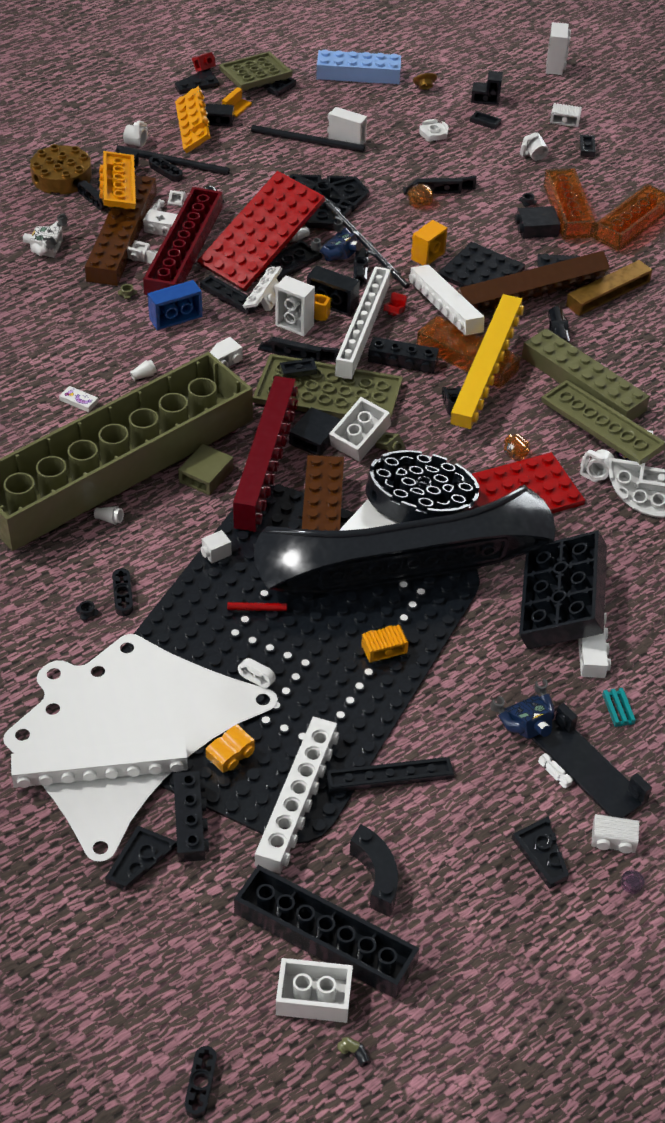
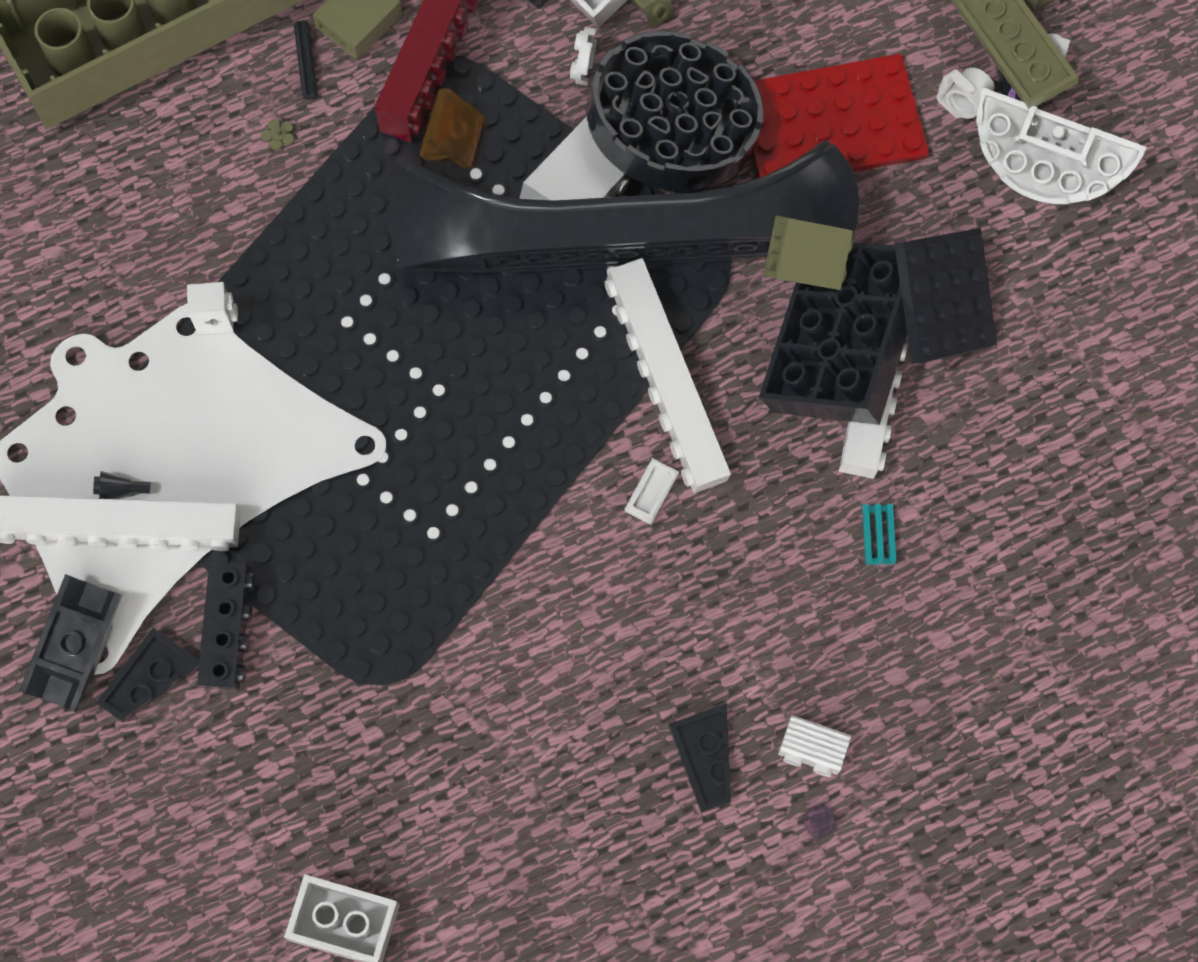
camera: 10 degrees right, 25 degrees up
(81, 842) = (71, 643): none -> black piece
(86, 610) = (137, 243): black plate -> none
(92, 739) = (112, 486): none -> black cone
(109, 514) = (201, 80): white cone -> none
(117, 586) = (191, 213): black beam -> none
(145, 628) = (211, 308): none -> white brick
(166, 539) = (278, 134): none -> olive plant
(176, 497) = (305, 60): none -> black axle
(216, 546) = (343, 168): white brick -> none
(230, 748) = (300, 527): light orange brick -> none
(256, 672) = (361, 403): white beam -> none
(257, 606) = (386, 283): red bar -> none
(281, 512) = (452, 130): none -> clear orange bracket
(315, 745) = (427, 517): white brick -> none
(323, 493) = (519, 108): reddish brown brick -> none
(326, 930) = (376, 835): black brick -> none
(356, 465) = (586, 48): none -> white plate
(379, 860) = (474, 749): black brick -> none
(384, 643) = (558, 379): light orange brick -> none
(389, 774) = (518, 598): black tile -> none
(457, 633) = (667, 376): none -> white brick
(461, 702) = (651, 491): none -> white tile
(516, 446) = (847, 36): clear orange head -> none
(529, 716) = (739, 537): dark blue torso -> none
(531, 541) = (808, 253): none -> olive brick
(555, 770) = (758, 627): white axle -> none
(591, 769) = (807, 630): black bracket -> none
(623, 559) = (945, 295): none -> black plate

